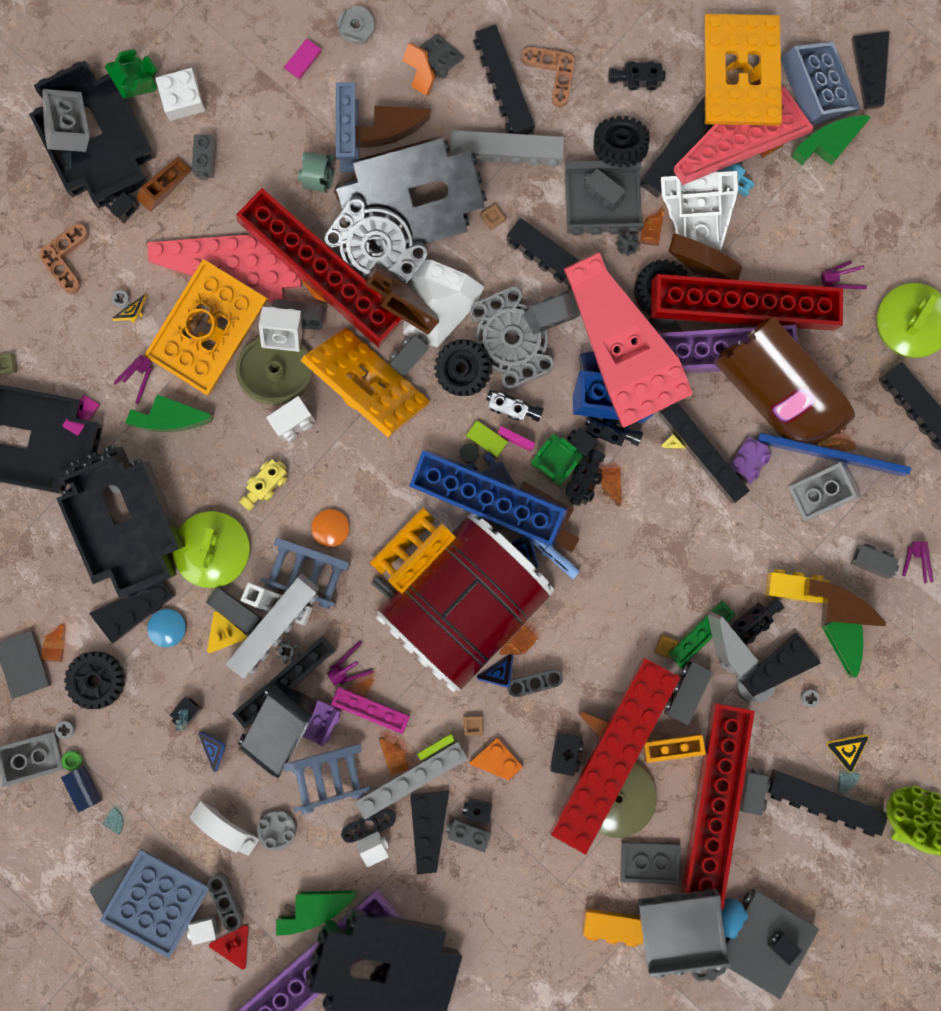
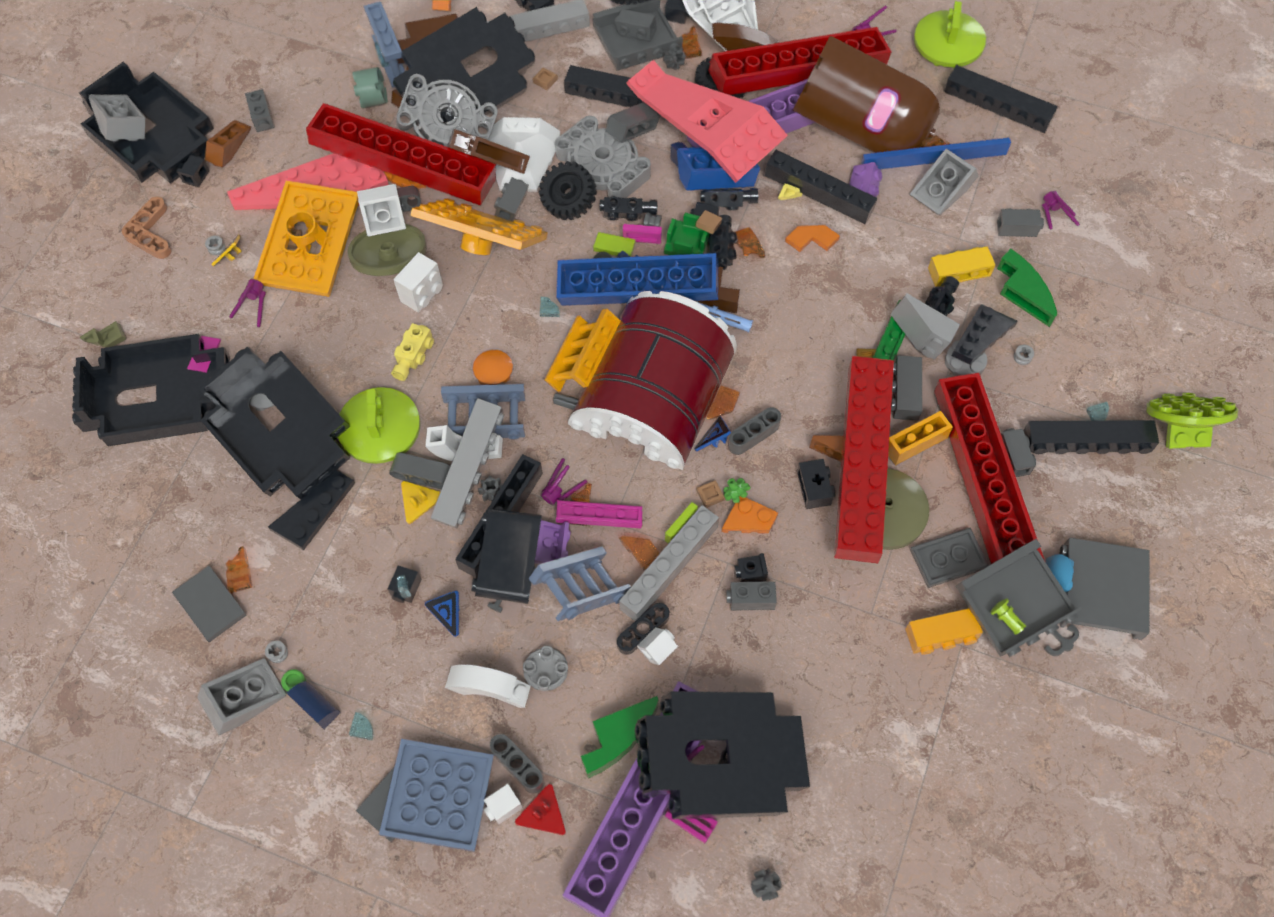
camera: 20 degrees left, 20 degrees down
(79, 680) = (303, 601): black wheel -> none
(131, 74) = (170, 70): green panel -> none
(166, 628) = (355, 514): dark azure dish -> none
(168, 416) = (295, 324): green slope -> none
(180, 94) = (222, 71): white brick -> none
(303, 59) = (326, 18): dark pink tile -> none
(402, 483) = (548, 308): none -> clear light blue tile
(428, 825) = (705, 604): black wing -> none
(495, 732) = (736, 489): none -> bright green plant
(530, 430) = (651, 220): none -> dark grey wheel
(579, 458) = (708, 222): none -> medium nougat tile
(666, 941) = (1008, 616): none -> lime pin
(682, 500) = (820, 234): none -> orange tile
(784, 947) = (1125, 575): black brick -> none
(842, 605) = (1011, 256): reddish brown slope -> none
(848, 750) = (1084, 383): black piece -> none

